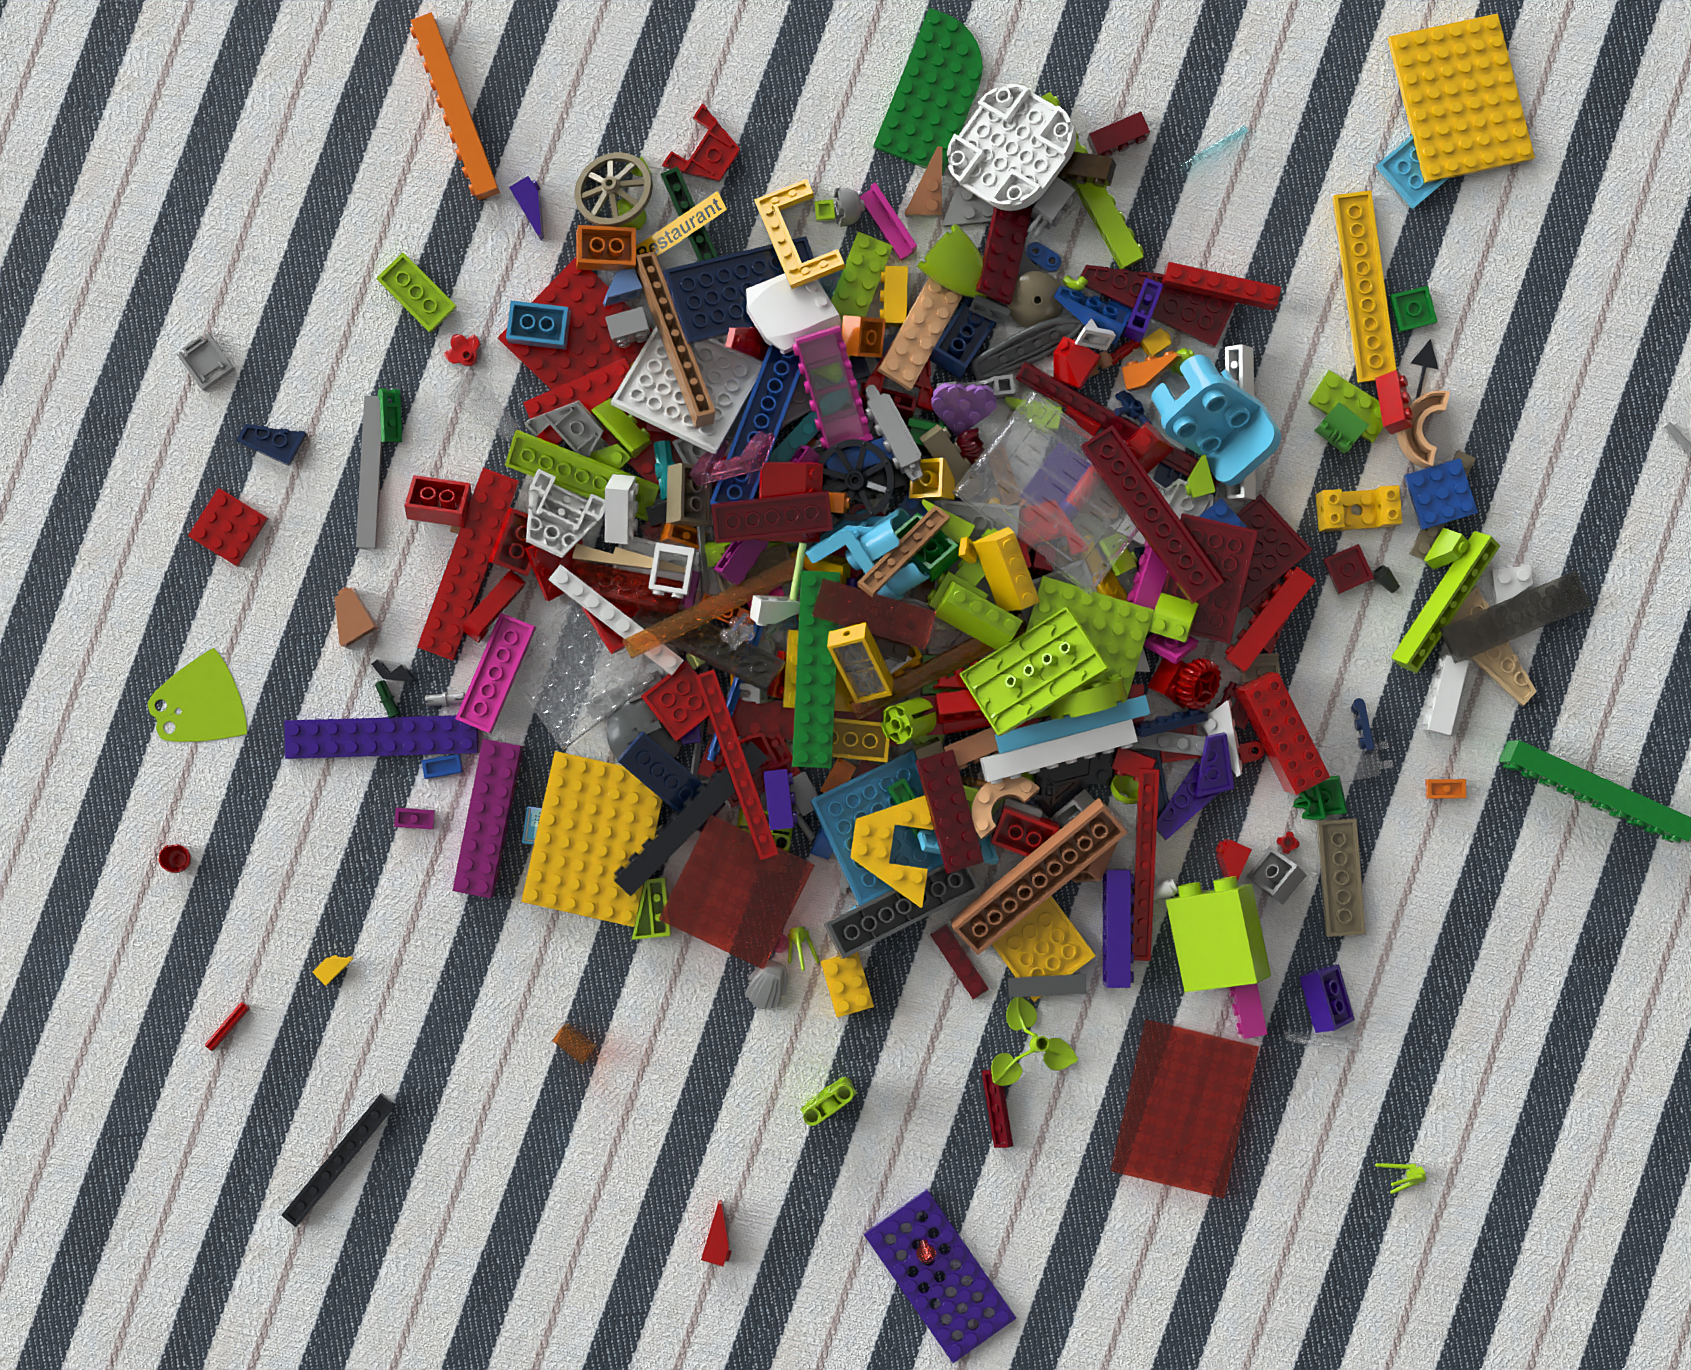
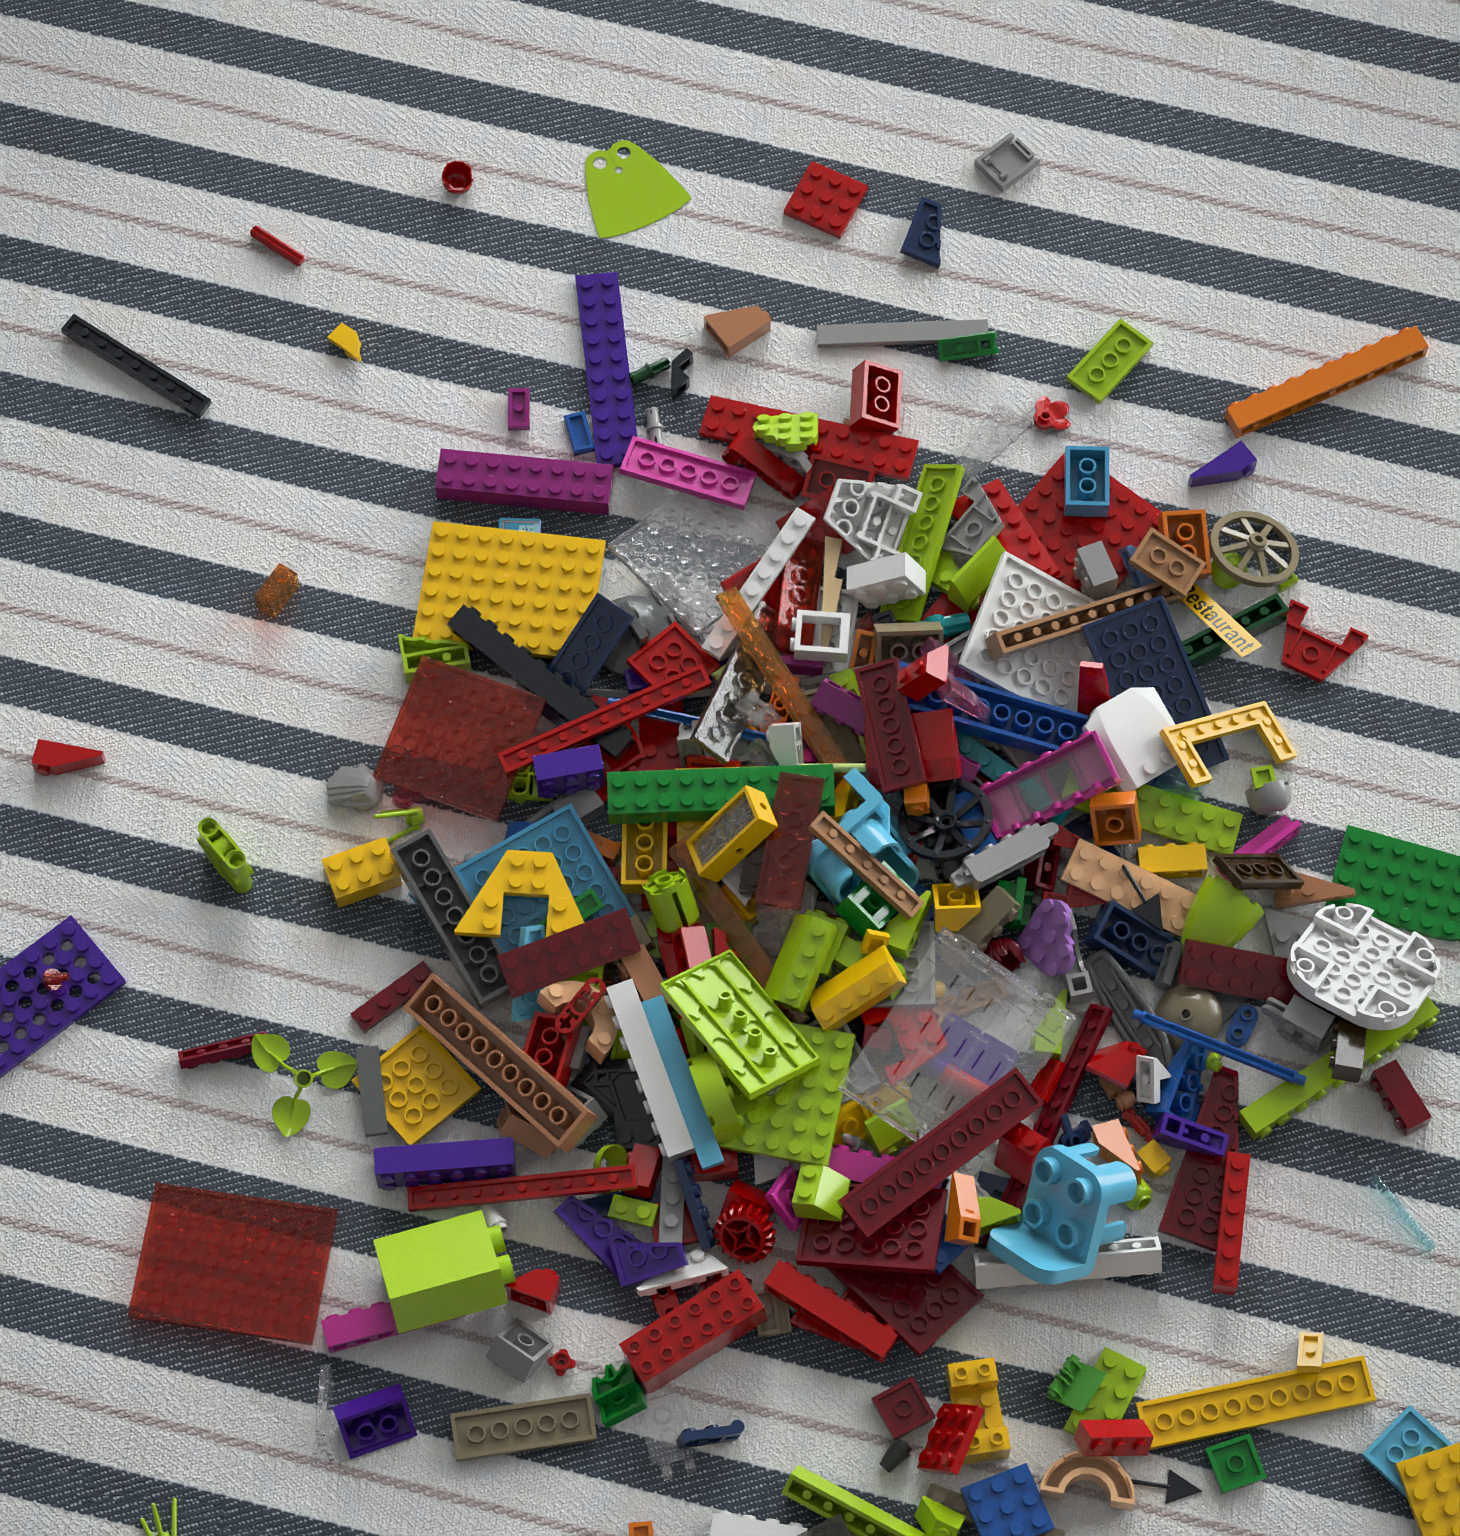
camera: 85 degrees right, 20 degrees down
(467, 579) = (788, 430): none -> lime plate
(487, 585) = (793, 459): none -> light grey plate
(628, 263) = (1167, 563): none -> medium nougat plate
(731, 481) = (924, 674): none -> red slope
(922, 222) = (1258, 871): none -> dark brown plate
(940, 317) = (1149, 909): none -> black piece
(1003, 818) = (582, 1015): none -> red beam
(1072, 276) = (1218, 1047): none -> blue piece
(1124, 585) = (854, 1142): none -> light grey bar
(1169, 773) = (633, 1211): none -> lime plate
(1205, 501) = (963, 1211): none -> orange slope
(1329, 237) = (1310, 1352): none -> yellow plate
(1387, 532) = (950, 1438): none -> red plate

